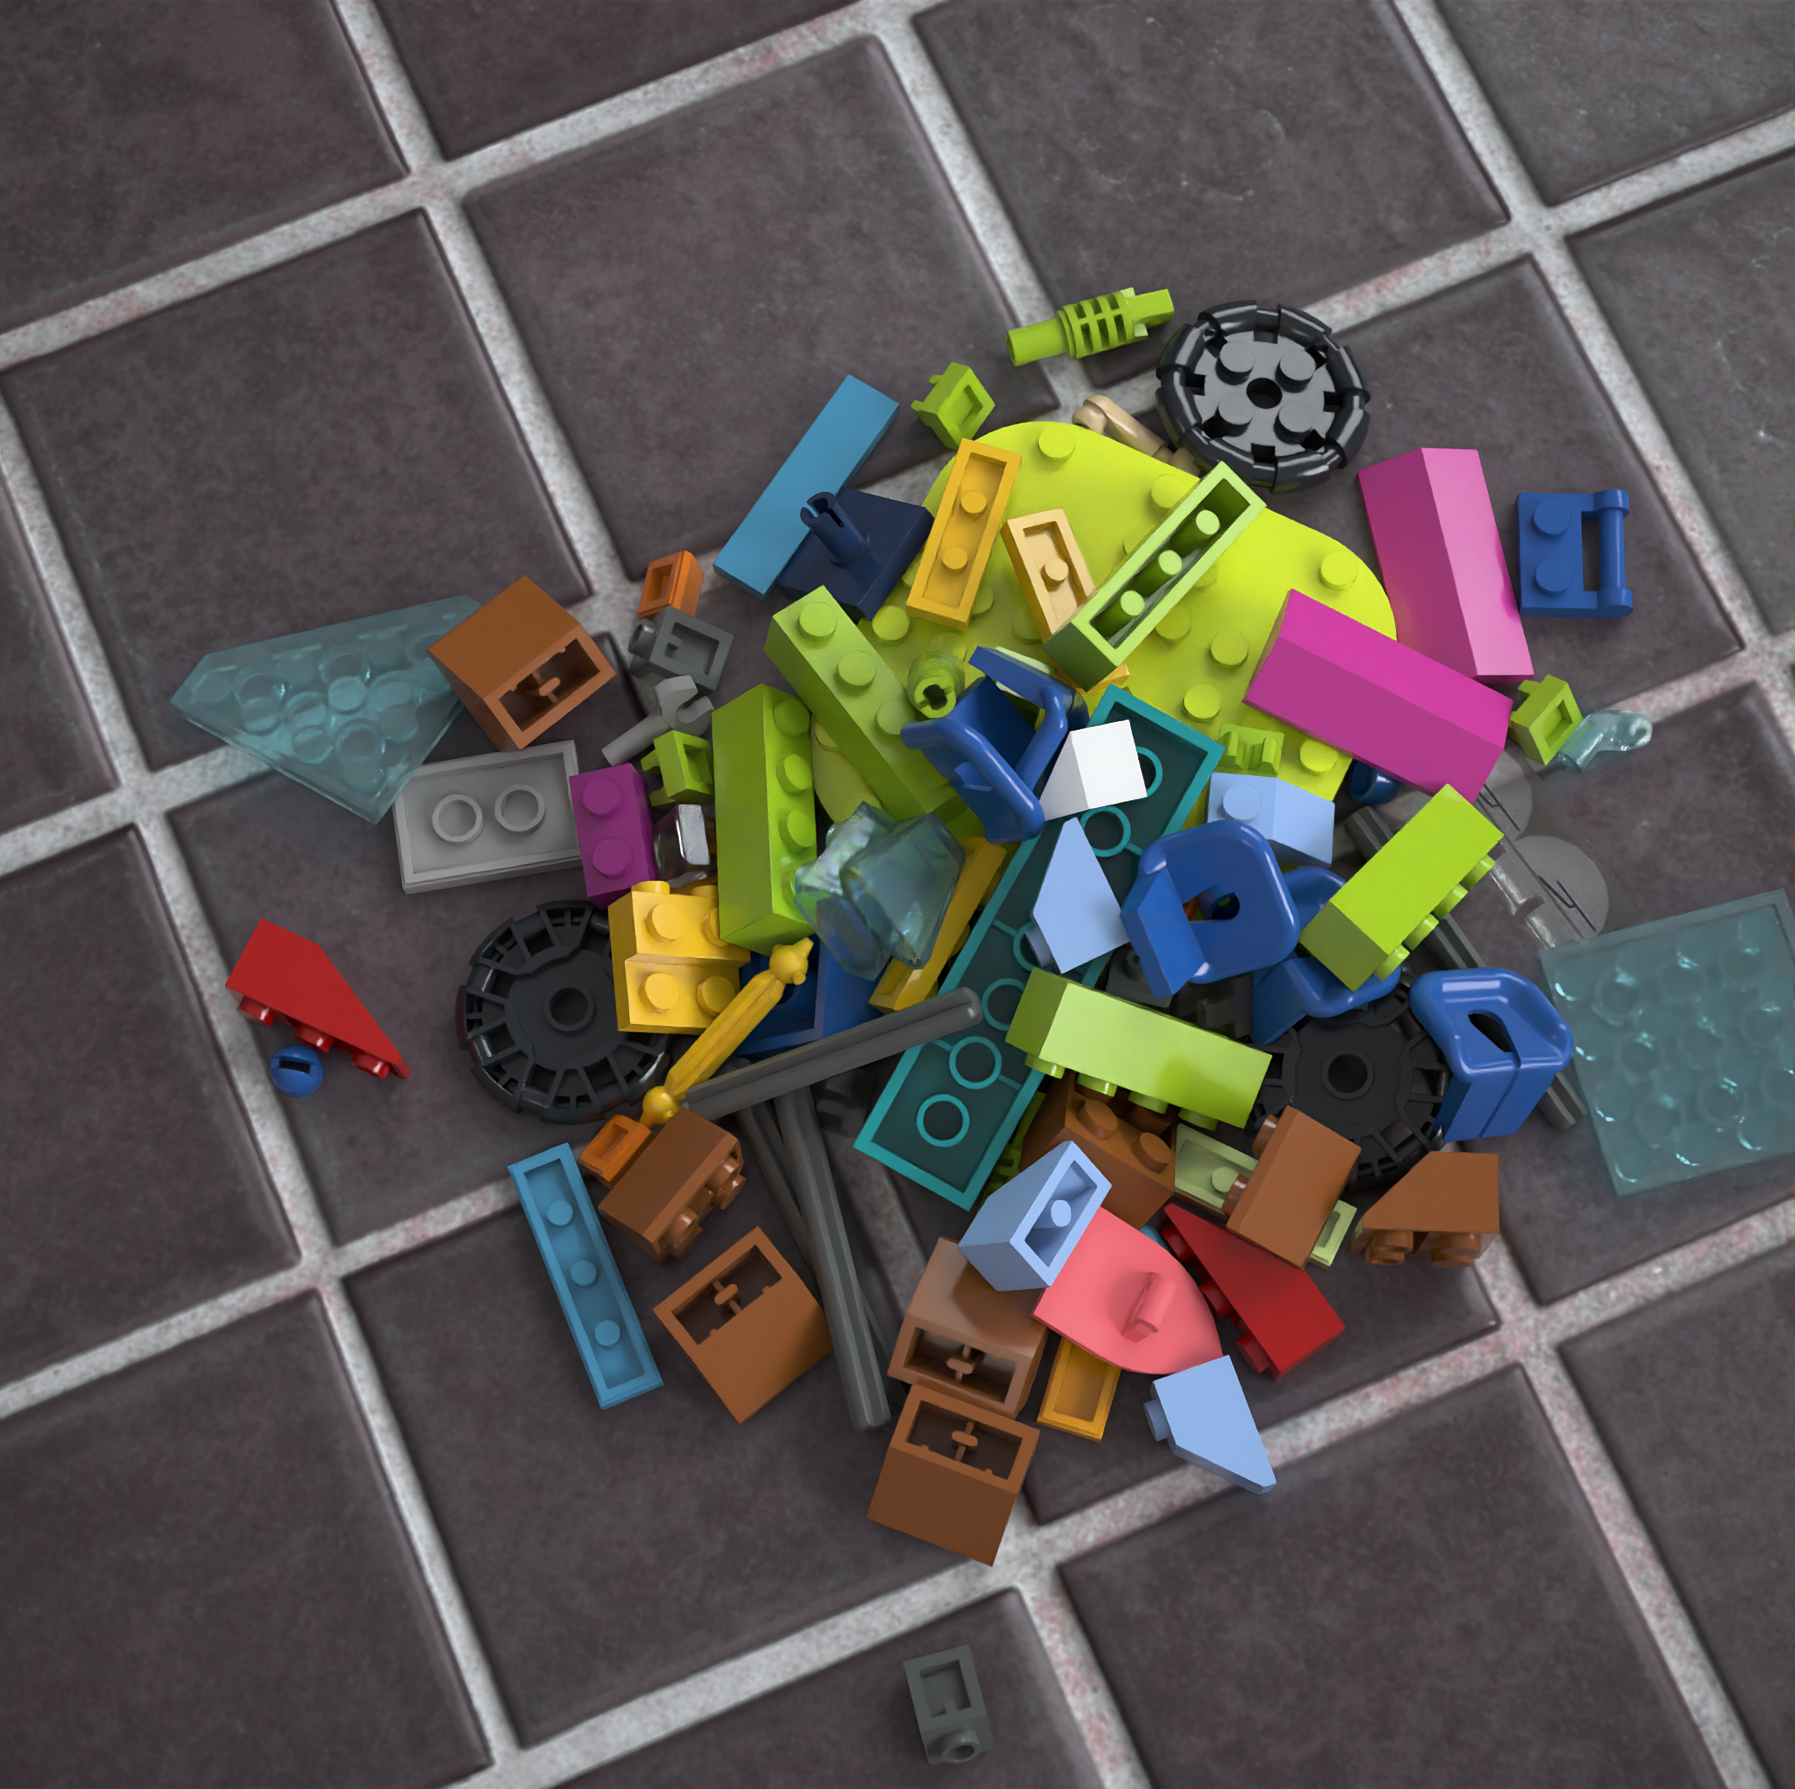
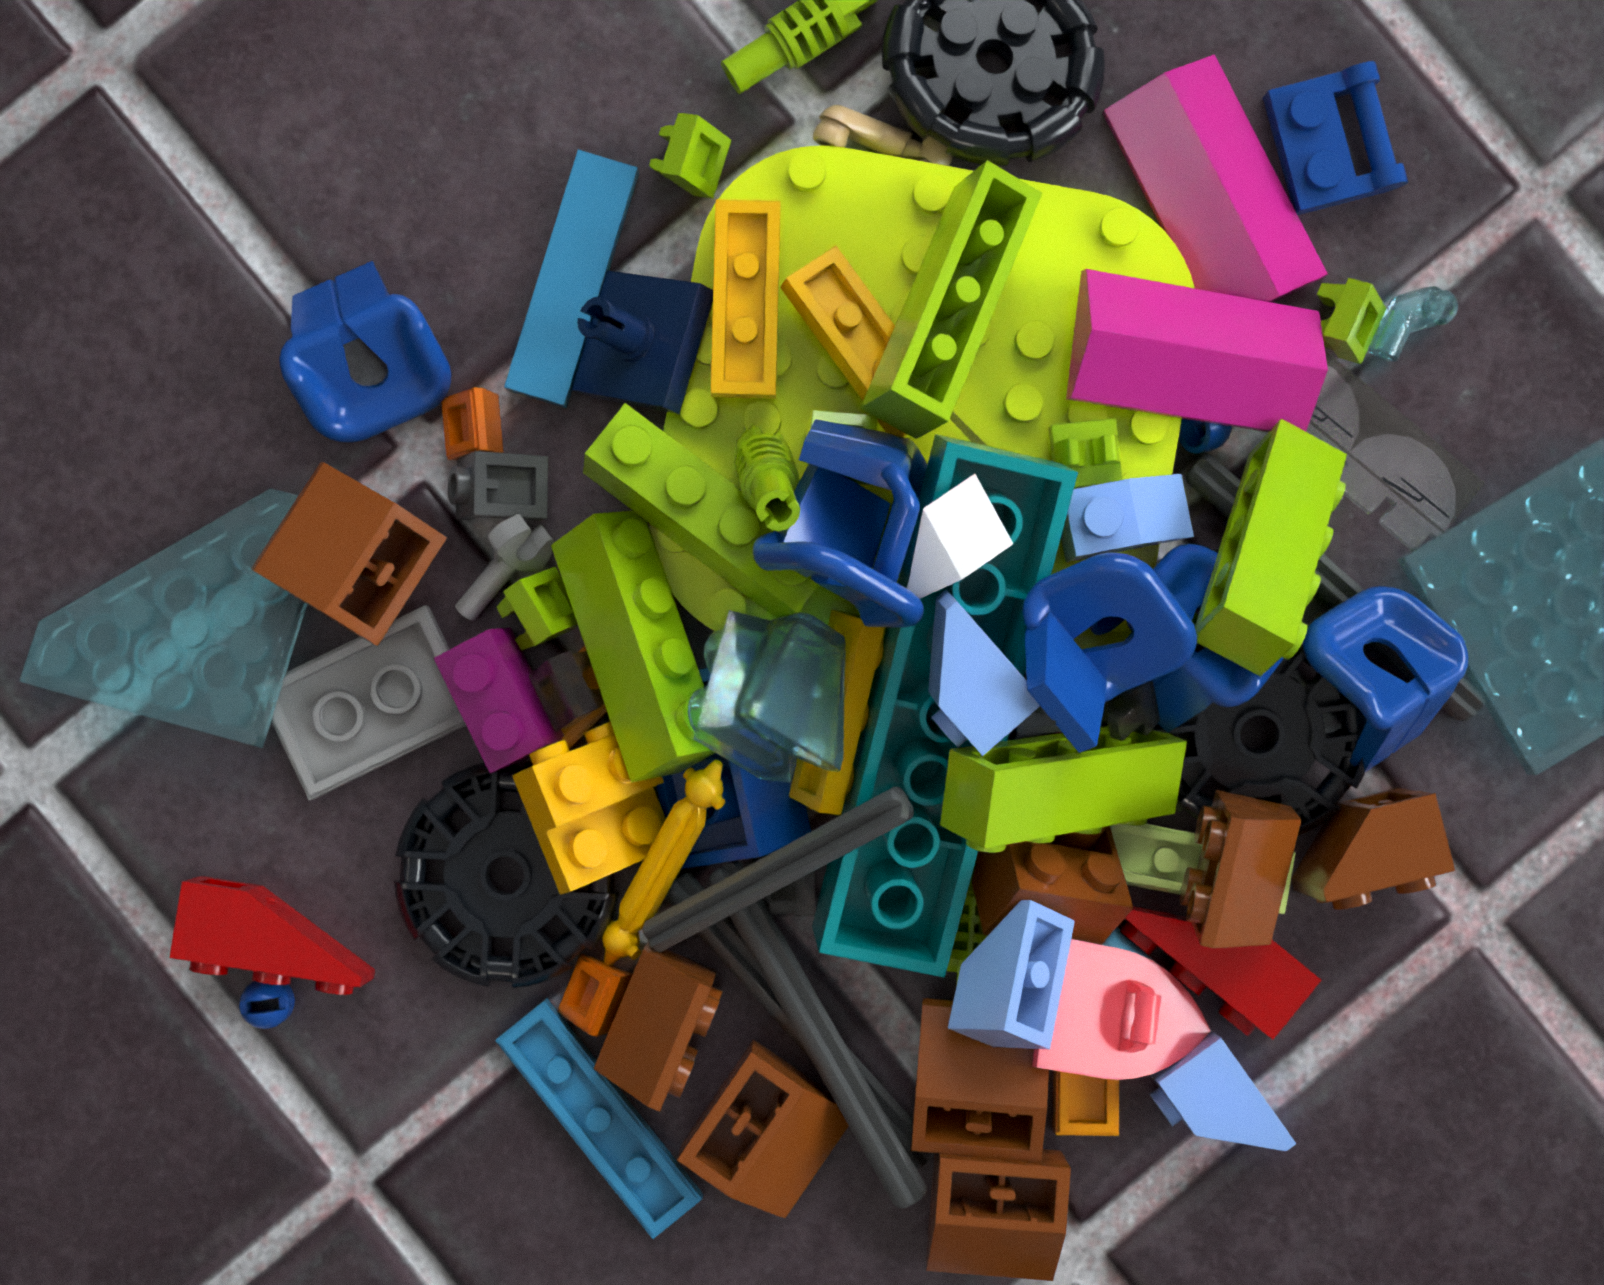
camera: 15 degrees left, 15 degrees up
(545, 501) = (391, 326): none -> blue piece

